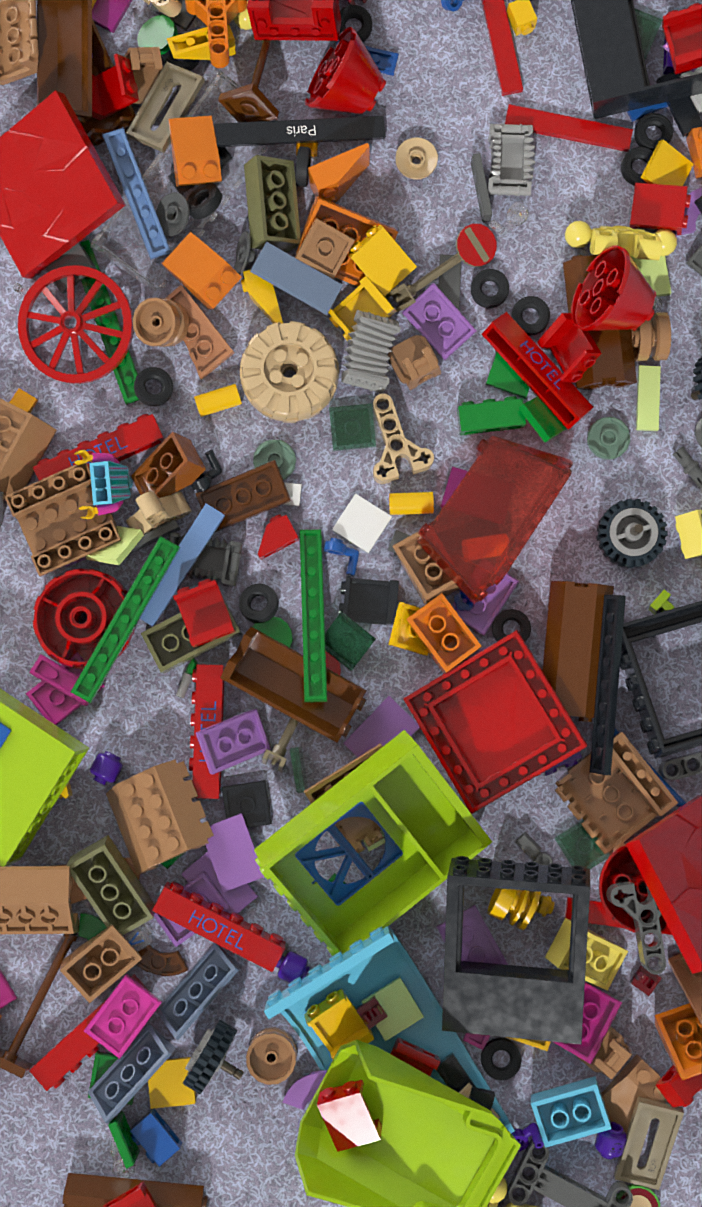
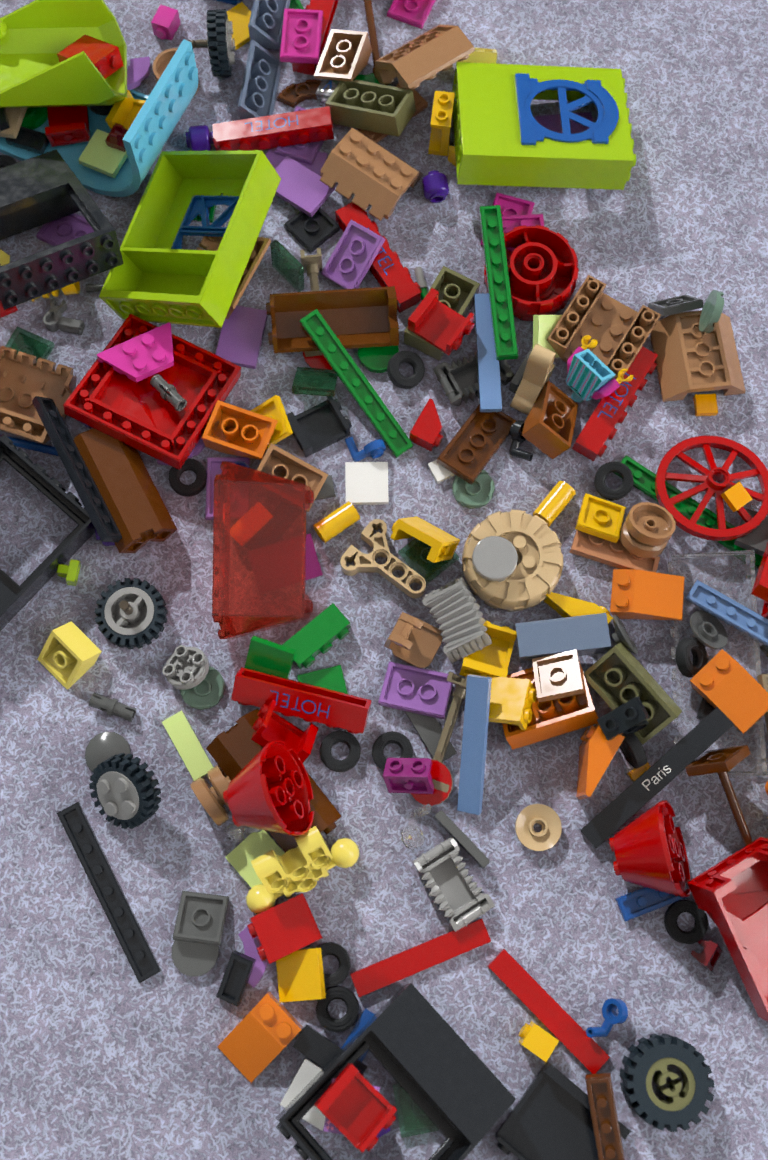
camera: 145 degrees right, 10 degrees down
(57, 824) = (441, 123): none -> yellow panel
(68, 297) = (736, 497): none -> light orange tile
(188, 362) = (600, 518): none -> yellow tile
(242, 1130) = (165, 22): none -> dark pink brick
(300, 176) = (624, 719): none -> black pin
(309, 371) = (494, 558): none -> light grey tile
(347, 434) = (442, 543): none -> yellow panel
(425, 243) = (474, 744): none -> medium blue tile
(485, 705) = (174, 397): none -> dark grey pin
(486, 758) = (142, 354): none -> dark pink wing
(490, 258) = (408, 775): none -> magenta bracket
(613, 459) = (186, 667): none -> light grey tile

